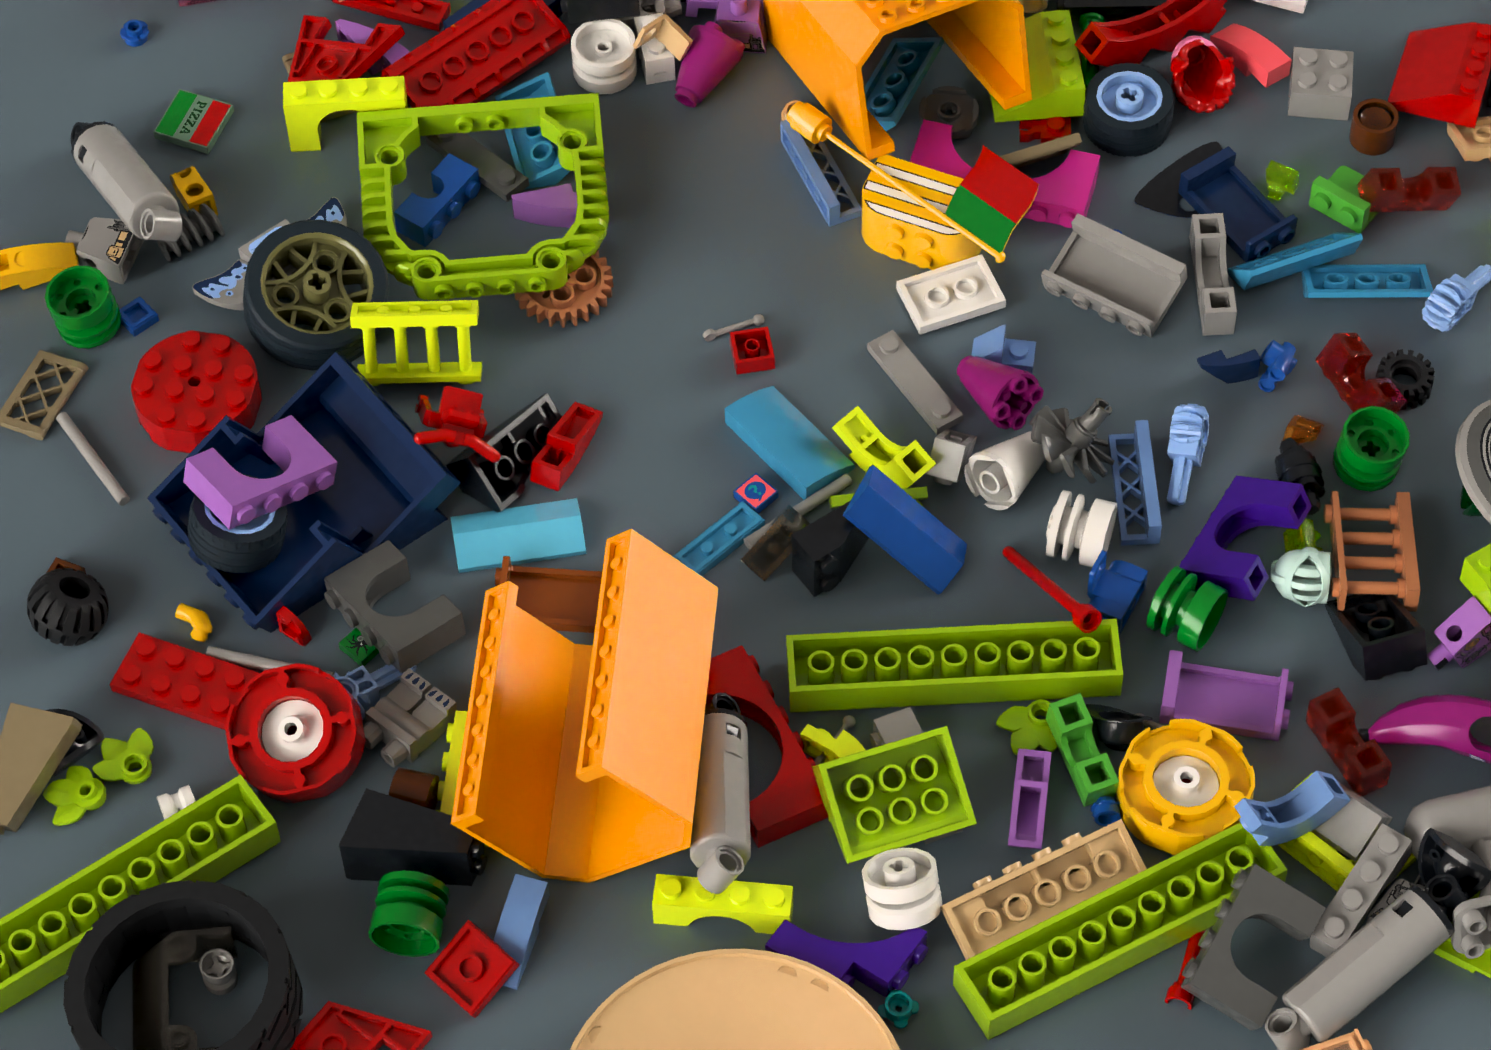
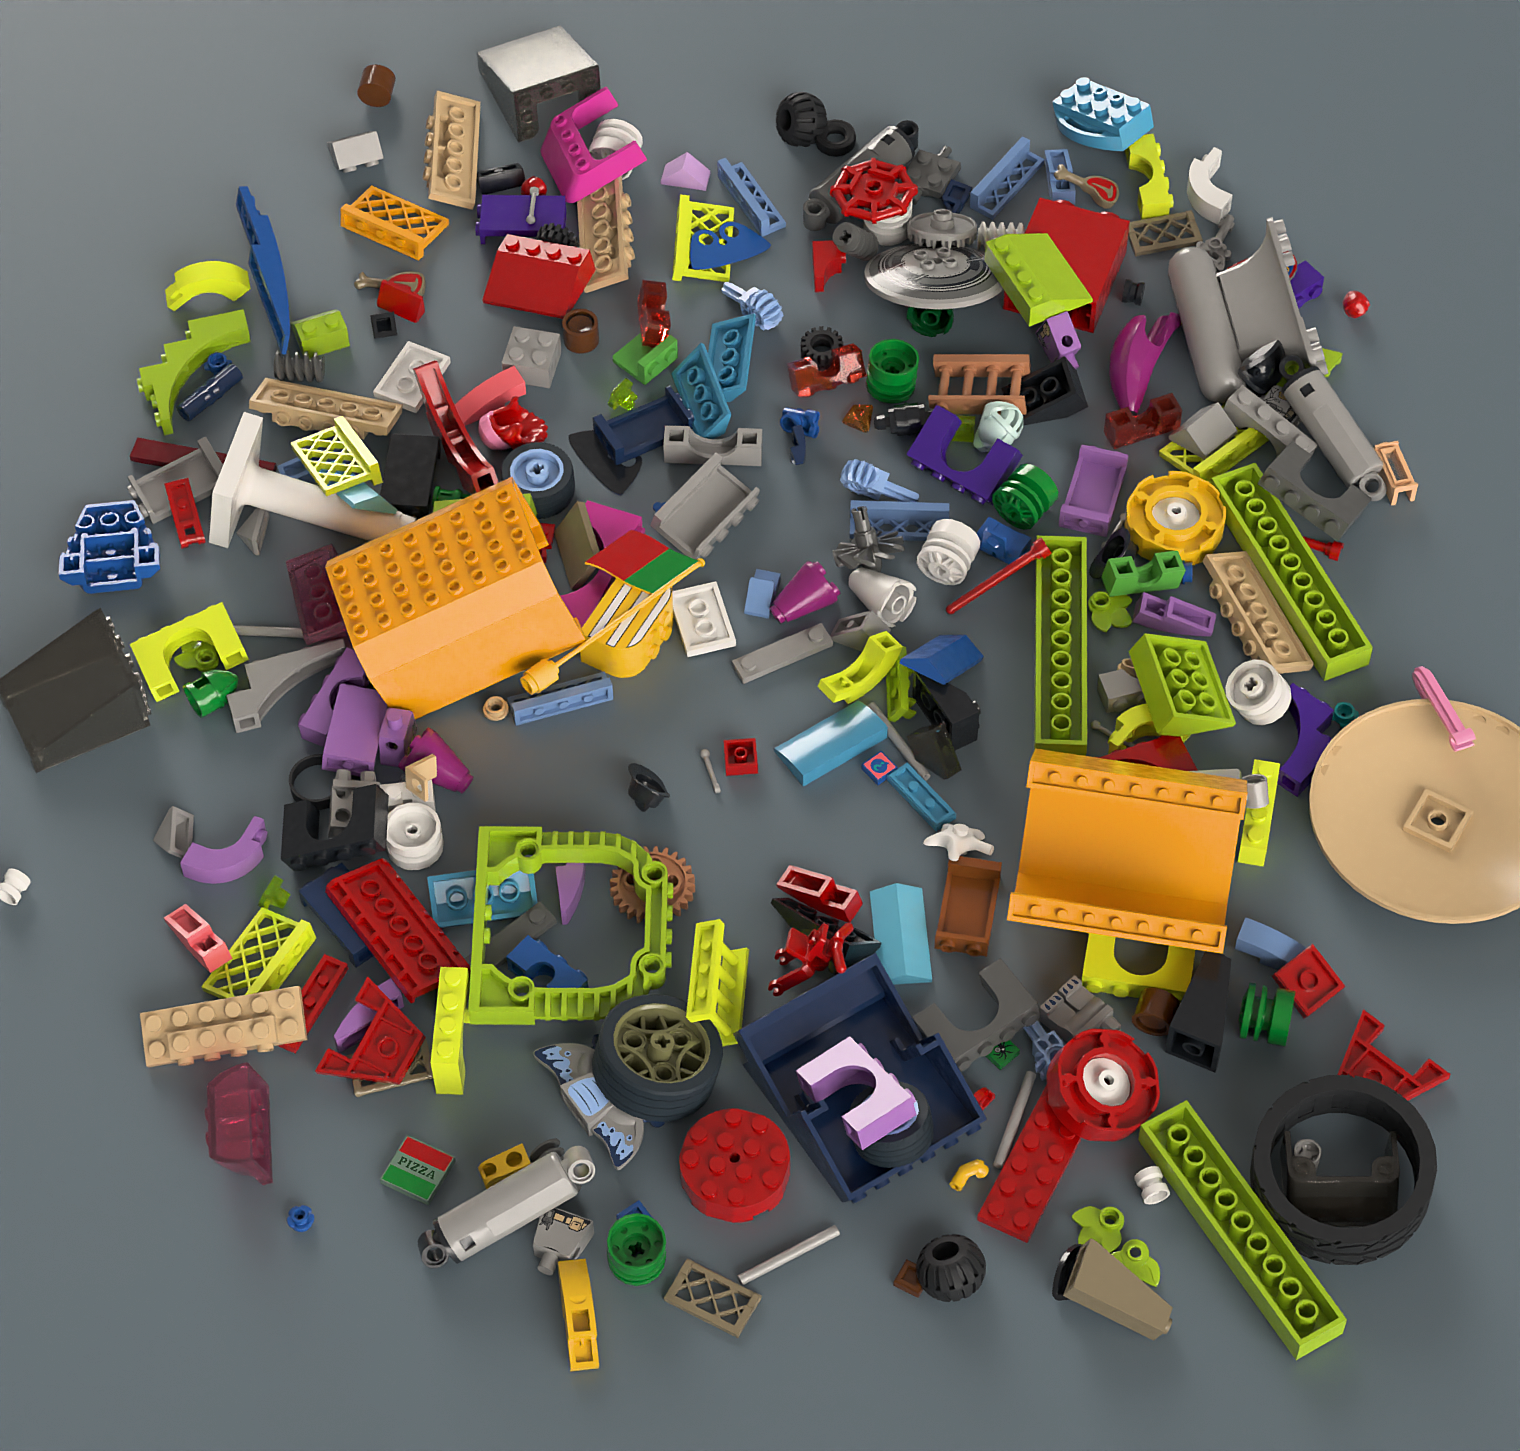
camera: 85 degrees left, 0 degrees up
(700, 260) = (645, 787): none -> black piece
(1295, 812) = (1212, 449): medium blue arch -> none

